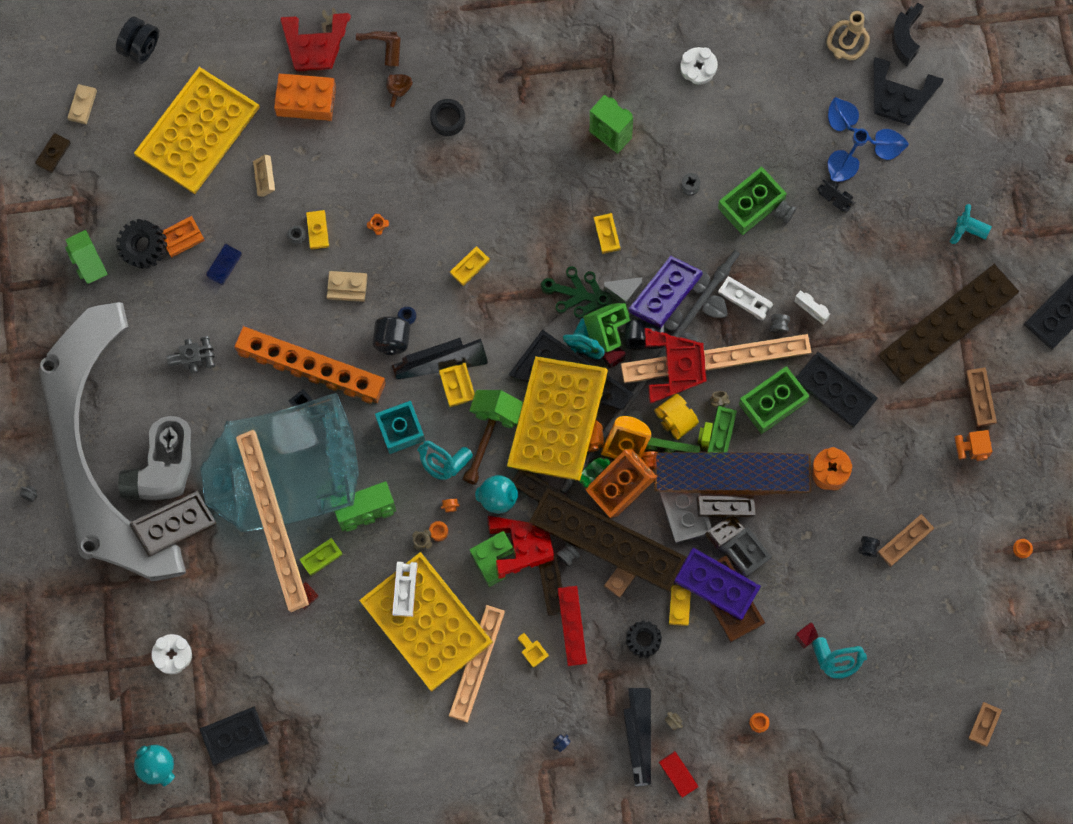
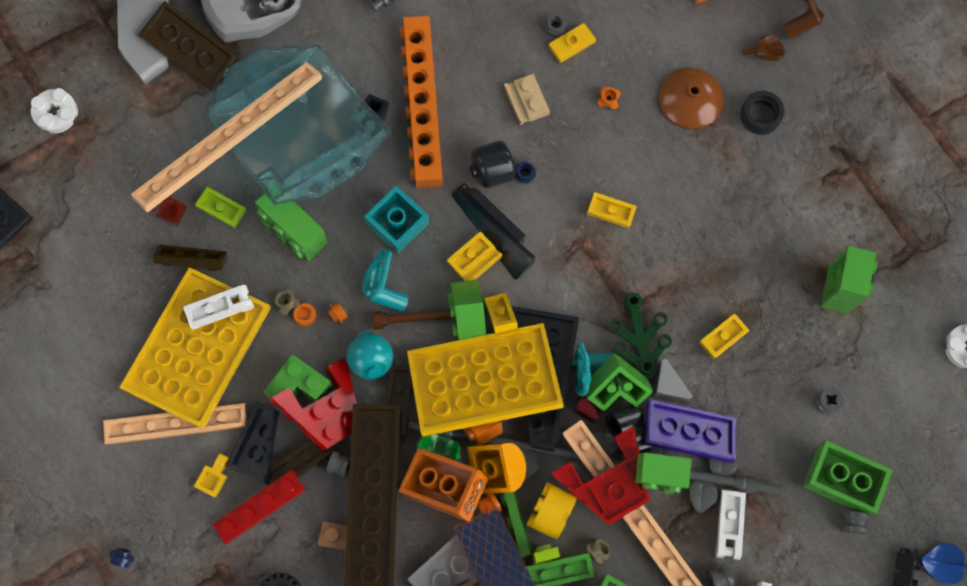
camera: 55 degrees right, 0 degrees up
(351, 596) = (190, 257): none -> dark brown plate
(411, 173) = (690, 109): none -> dark orange dish
(512, 383) = (500, 313): none -> yellow plate
(523, 608) = (256, 443): none -> black wing
(688, 323) = (663, 472): none -> bright green brick

